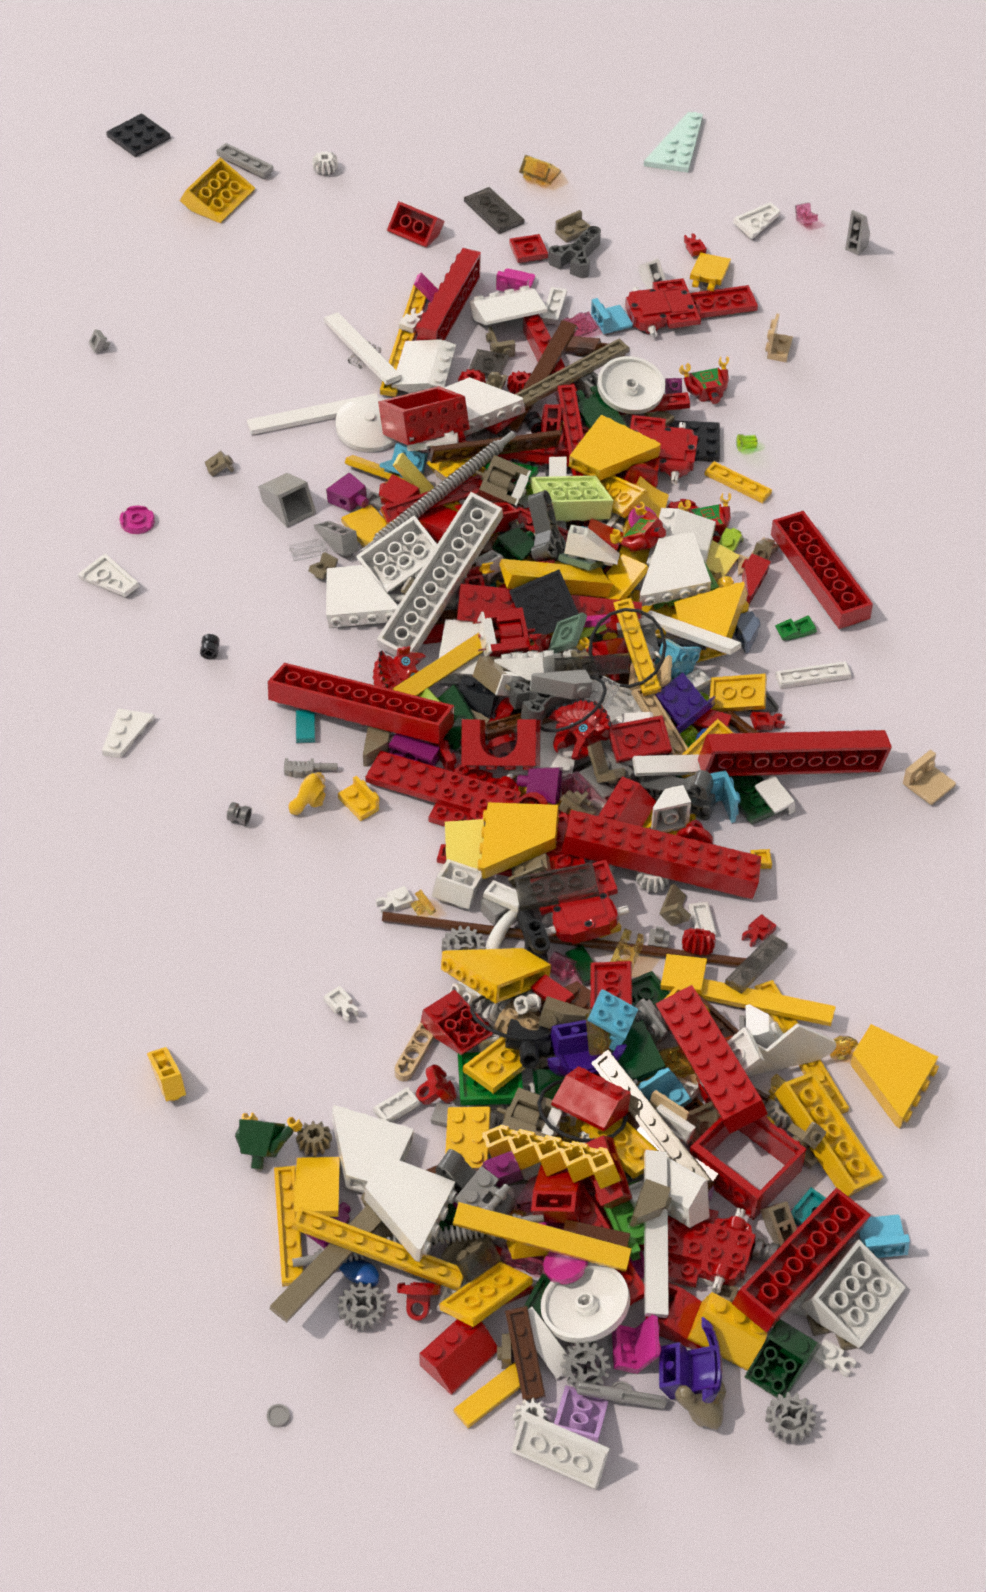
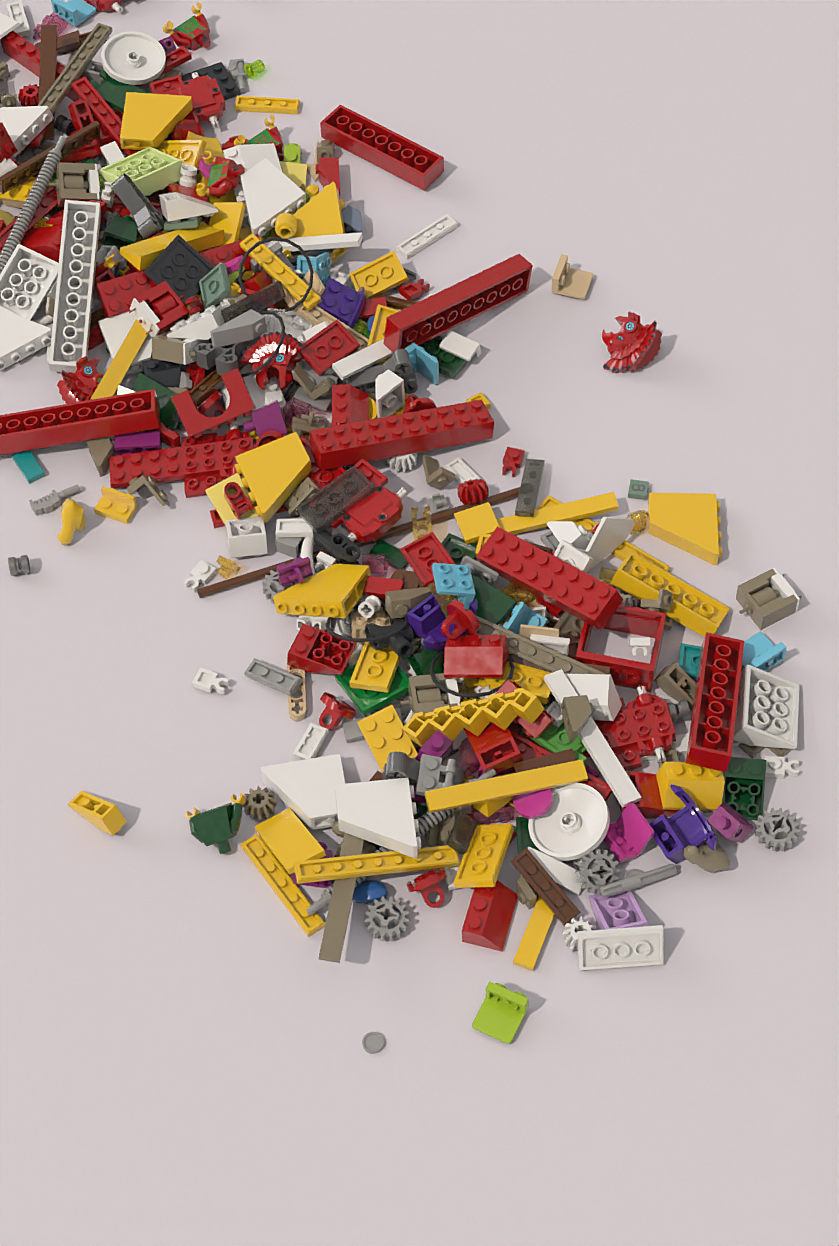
camera: 25 degrees left, 5 degrees up
(400, 792) = (138, 483): none -> dark tan bracket
(400, 1027) = (273, 677): none -> light grey tile
(410, 1451) = (501, 1013): none -> lime bracket
(467, 847) = (238, 503): none -> red piece
(478, 936) = (294, 571): none -> magenta hips
(492, 712) = (184, 381): none -> light grey tile
(514, 941) = (324, 561): none -> white tile
(523, 505) = (108, 194): none -> white plate
(594, 1056) = (461, 619): none -> red tile
(614, 516) = (188, 176): none -> white wheel
(675, 605) = (286, 225): none -> yellow head
(728, 439) = (237, 72): none -> light grey piece
(744, 1383) = (729, 821): none -> magenta torso
(758, 1164) = (639, 643): none -> white tile
(792, 630) = (390, 205): green slope -> none
(865, 1016) = (638, 489): none -> sand green tile
(921, 1192) = (767, 598): none -> dark tan piece
(947, 871) = (632, 345): none -> red piece

